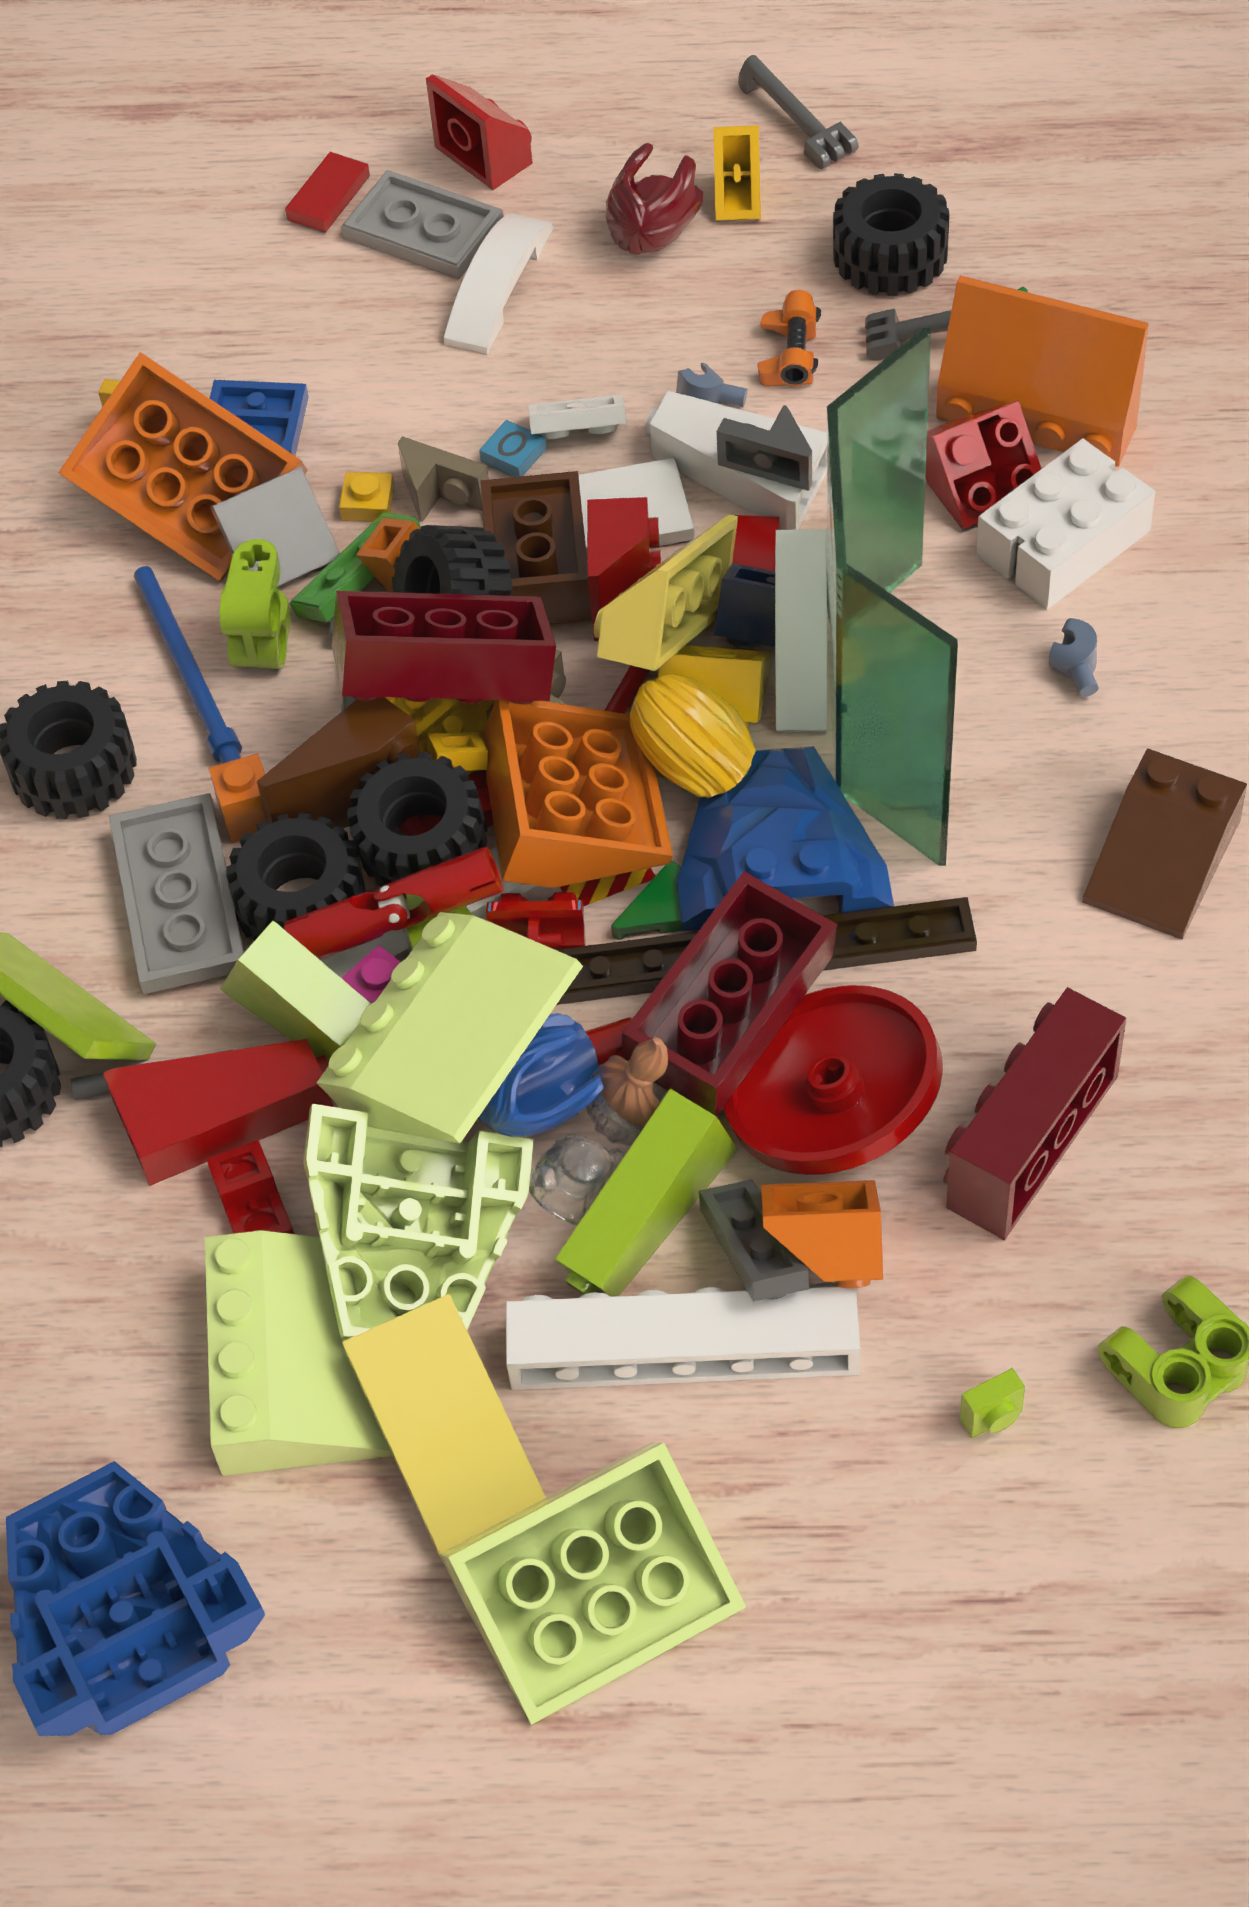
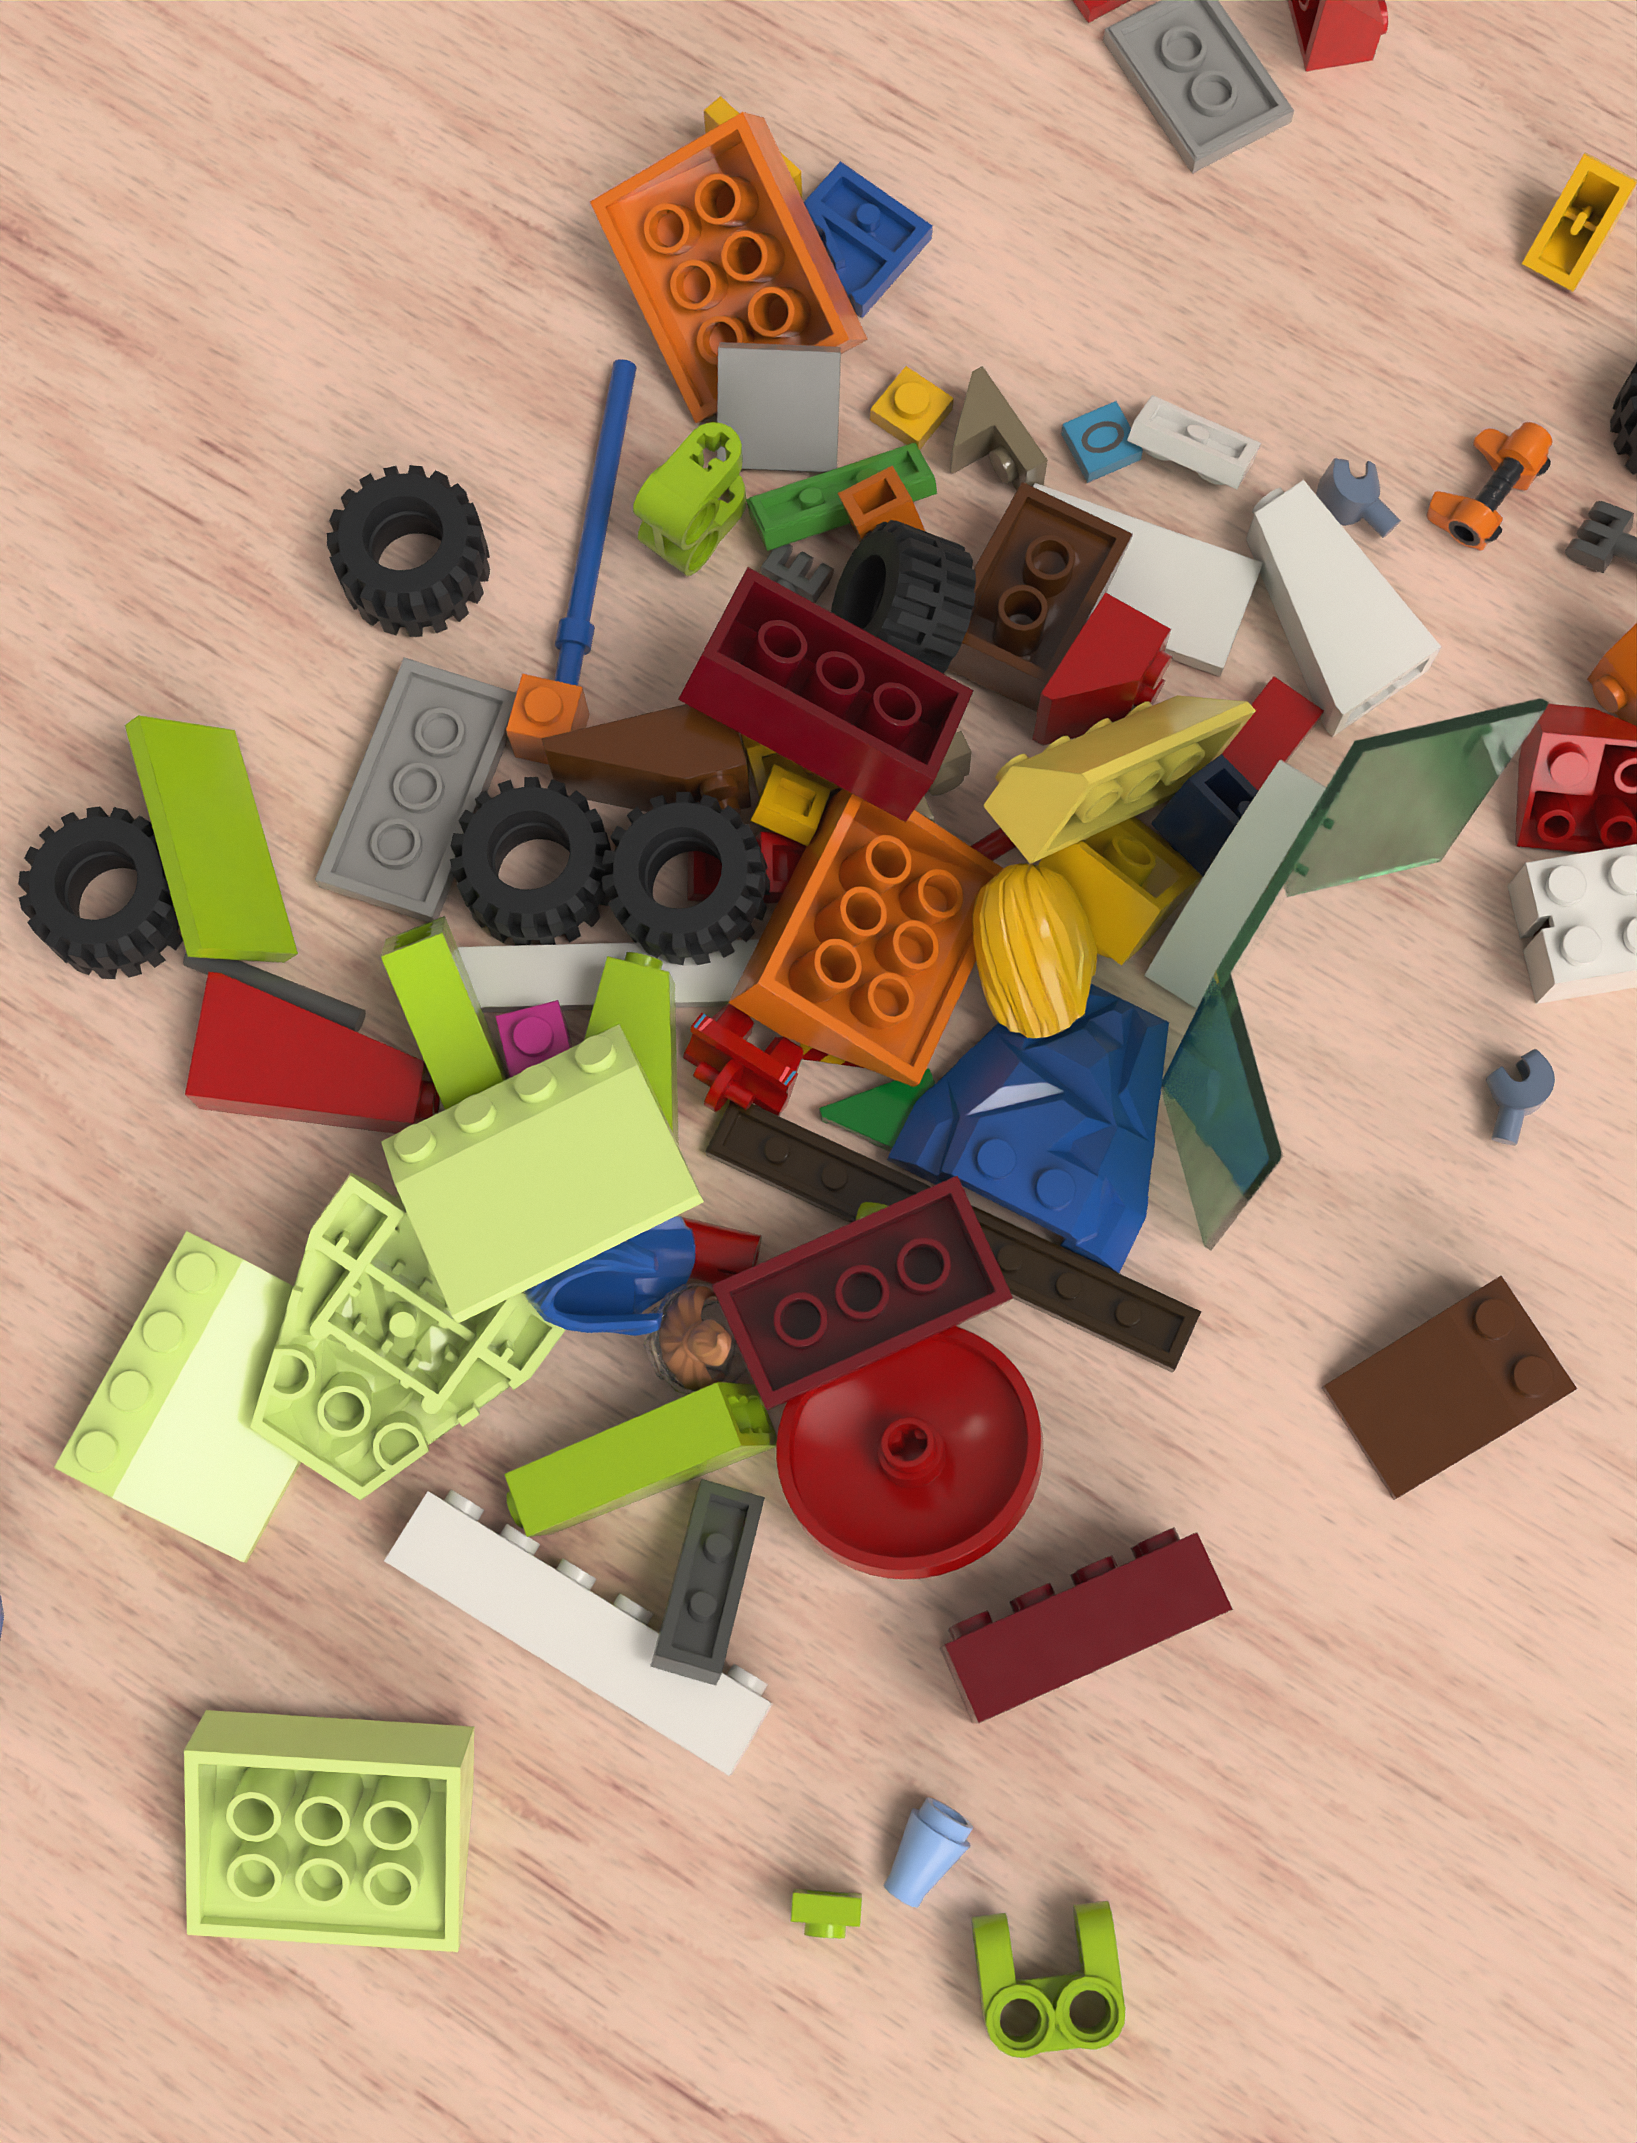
camera: 30 degrees right, 20 degrees up
(249, 1190) = (278, 1195): red slope -> none
(385, 910) = (595, 977): red piece -> none
(443, 1422) = (292, 1579): light yellow tile -> none
(491, 279) = (1225, 198): white slope -> none
(572, 1176) = (588, 1388): clear helmet -> none
(655, 209) = (1455, 209): dark red hair -> none
(771, 454) = (1355, 649): dark grey slope -> none
(829, 1228) = (780, 1621): orange slope -> none
(1035, 1324) = (928, 1849): none -> light blue cone

